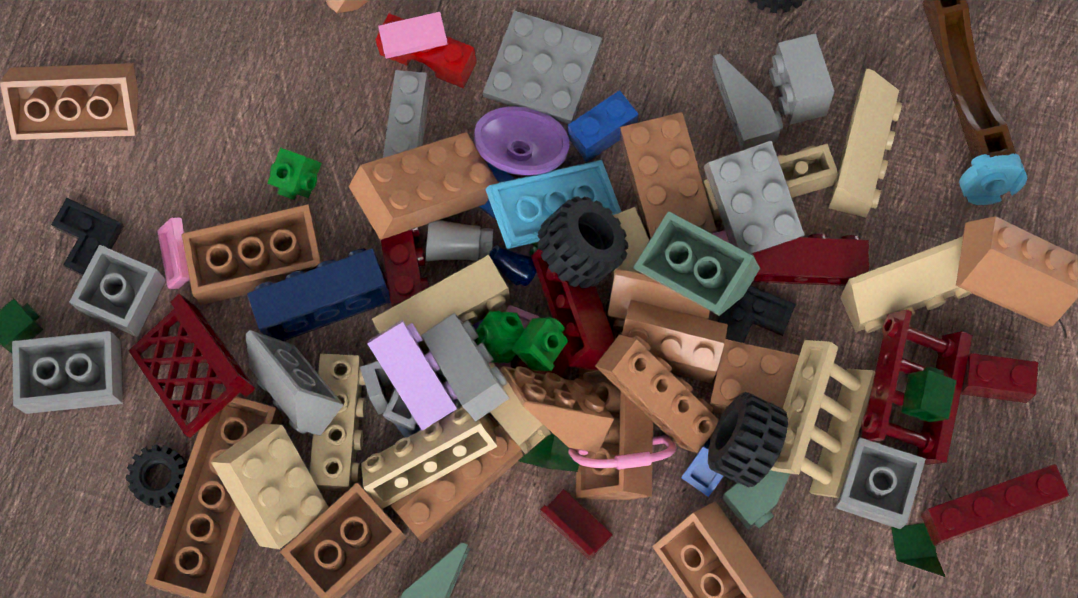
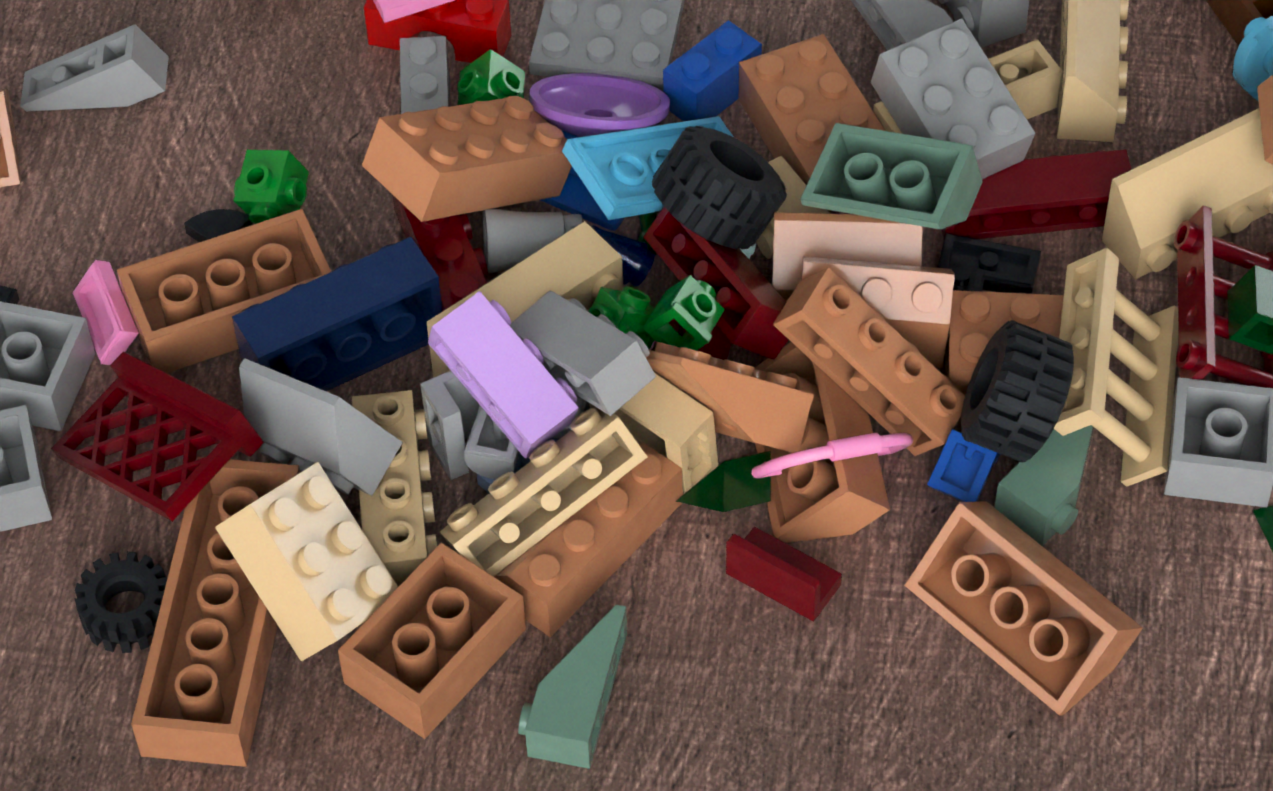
camera: 15 degrees left, 20 degrees down
(194, 59) = (99, 75): none -> light grey slope
(258, 194) = (216, 223): none -> black tile
(451, 116) = (490, 79): none -> green brick

